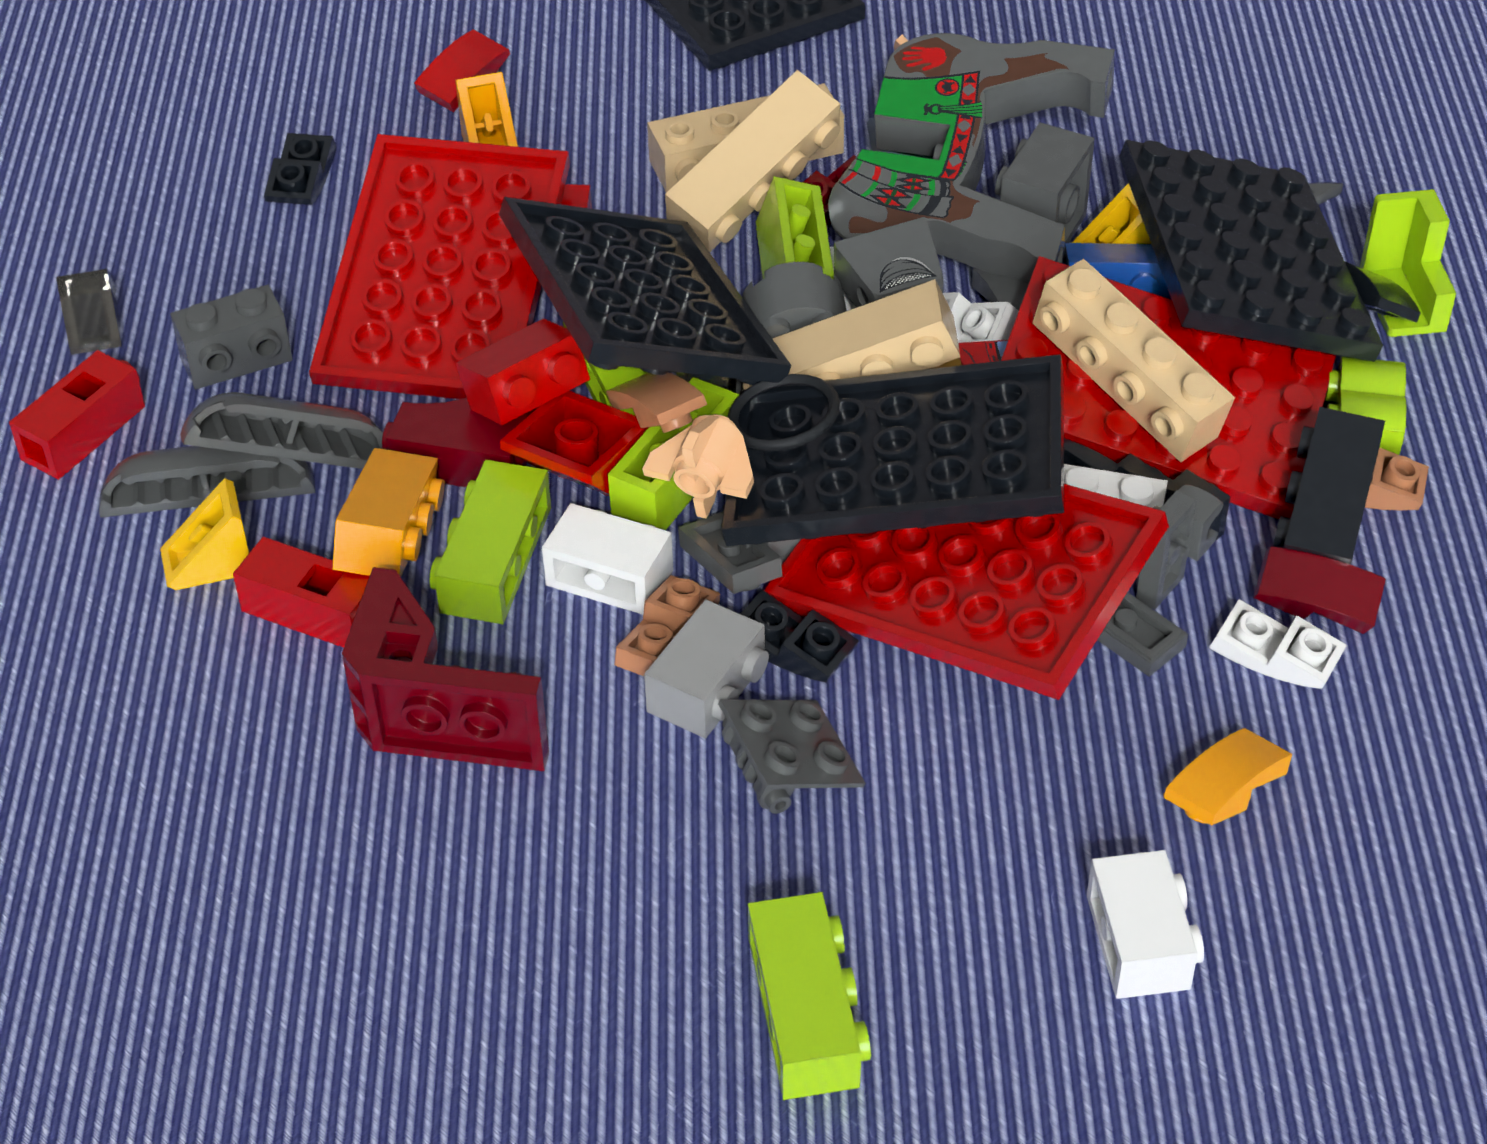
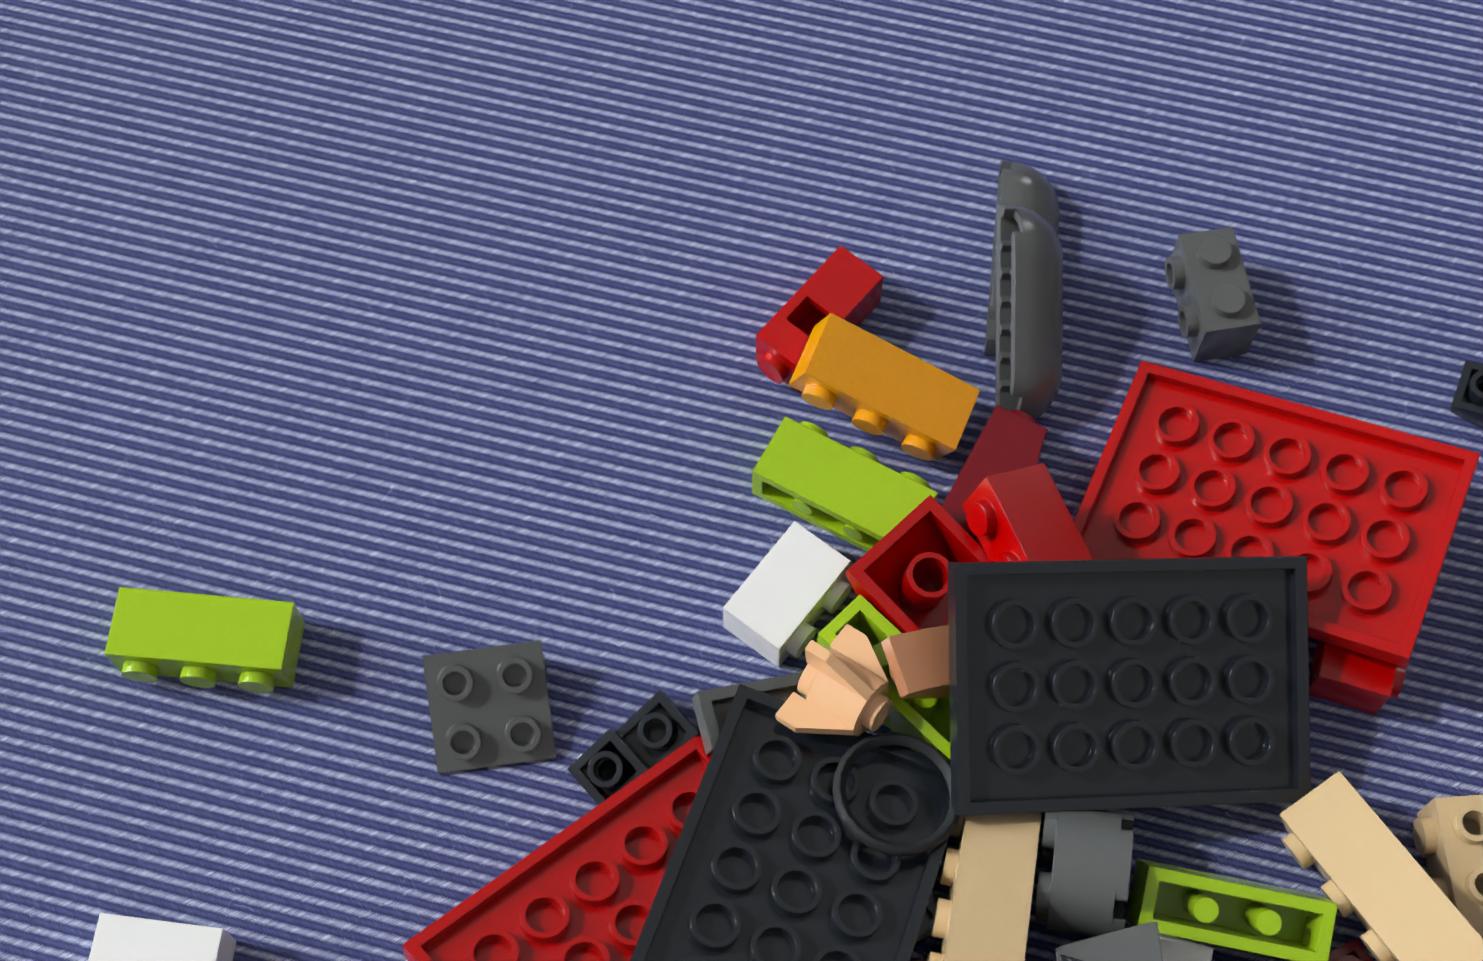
camera: 105 degrees right, 20 degrees up
(77, 414) = (1130, 151): red brick -> none
(90, 311) = (1304, 176): clear smoke slope -> none
(207, 543) = (913, 248): yellow slope -> none
(432, 709) = (685, 354): dark red bracket -> none
(663, 618) = (686, 636): nougat slope -> none
(704, 663) = (608, 652): light grey brick -> none

